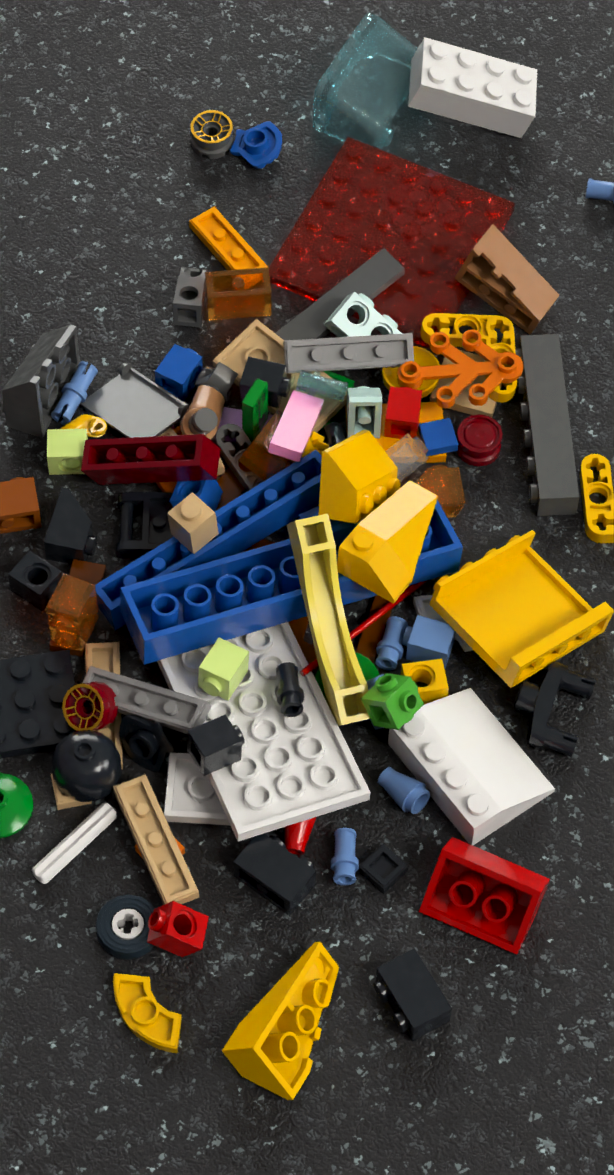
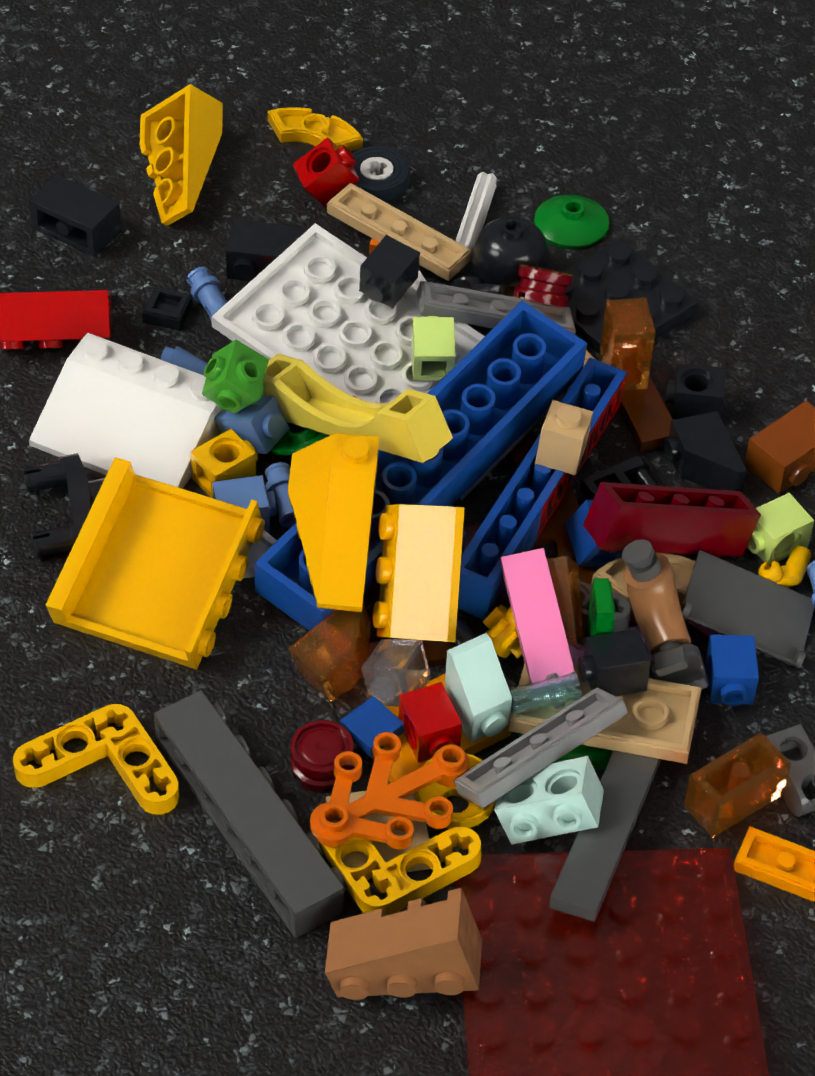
camera: 150 degrees right, 10 degrees down
(290, 693) = (350, 359): black pin -> none

